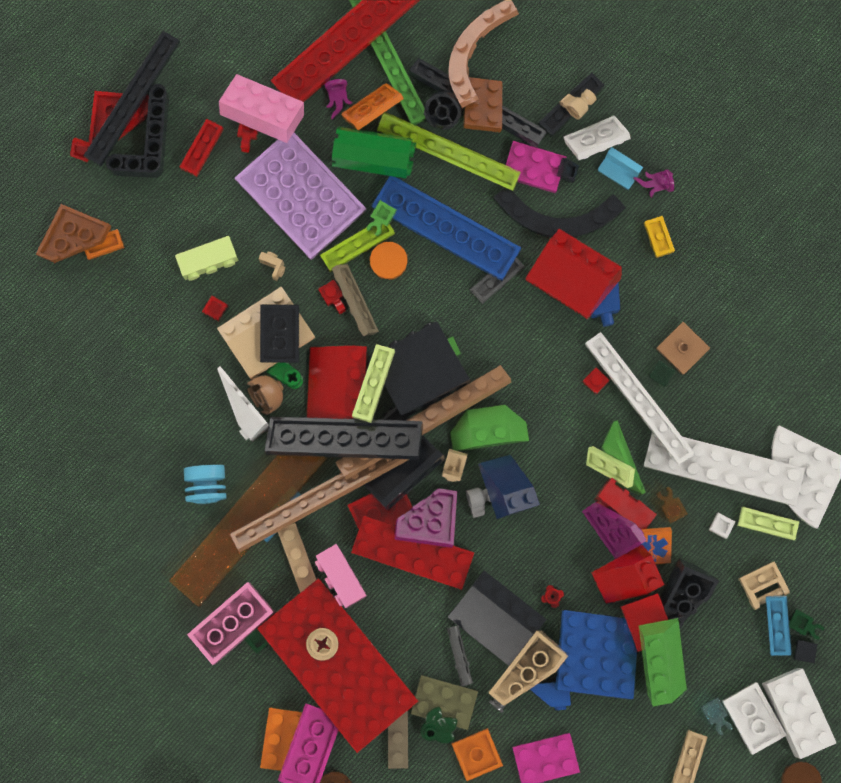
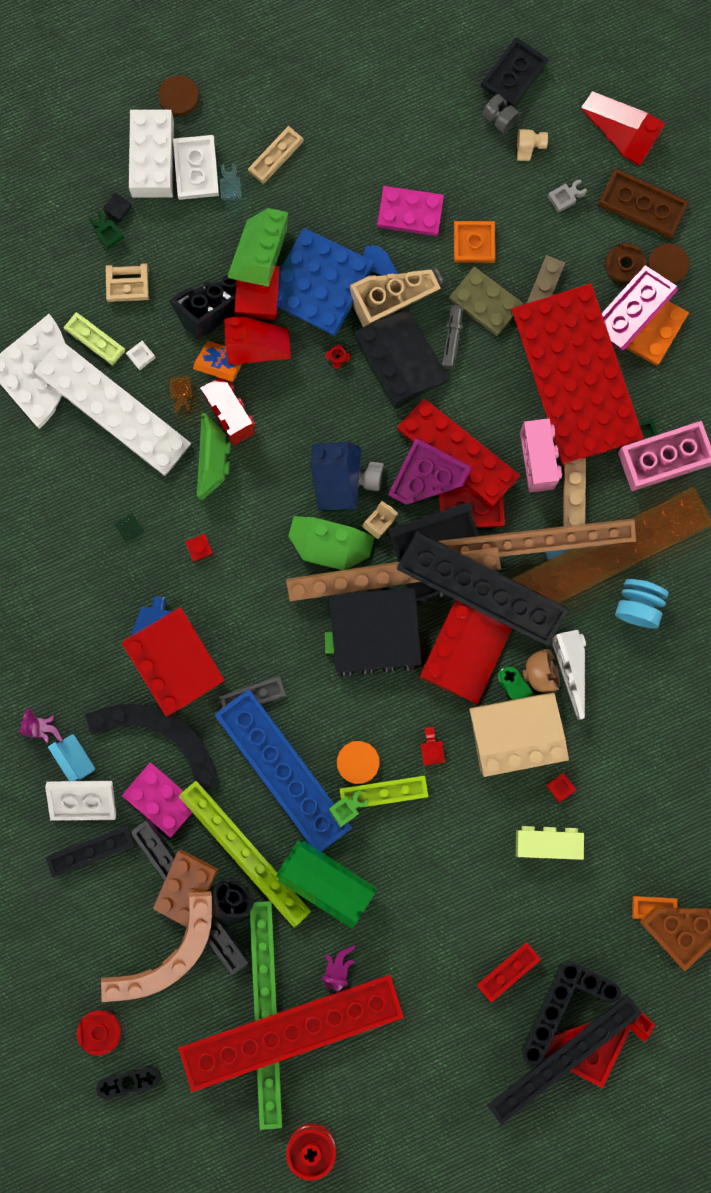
camera: 155 degrees left, 0 degrees up
(246, 134) = (450, 970): red plate -> none
(261, 108) = (427, 986): bright pink brick -> none
(270, 259) = (482, 813): tan bracket -> none
(279, 333) = (505, 725): black tile -> none
(300, 195) = (422, 874): lavender plate -> none
(320, 634) = (585, 385): tan gear -> none
(355, 300) = (411, 733): dark tan plate -> none
(372, 106) = (305, 938): orange tile -> none
(373, 383) = (429, 631): yellowish green plate -> none
(440, 725) = (502, 279): dark green plate -> none
(567, 170) = (127, 780): black tile -> none
(578, 105) = (85, 843): tan piece -> none
(610, 466) = (225, 450): yellowish green tile -> none
(615, 531) = (250, 388): magenta plate -> none
(639, 399) = (164, 508): white plate -> none
(659, 236) = (65, 668): yellow plate -> none
(682, 348) = (95, 544): medium nougat plate -> none
(778, 625) = (131, 238): dark azure tile -> none

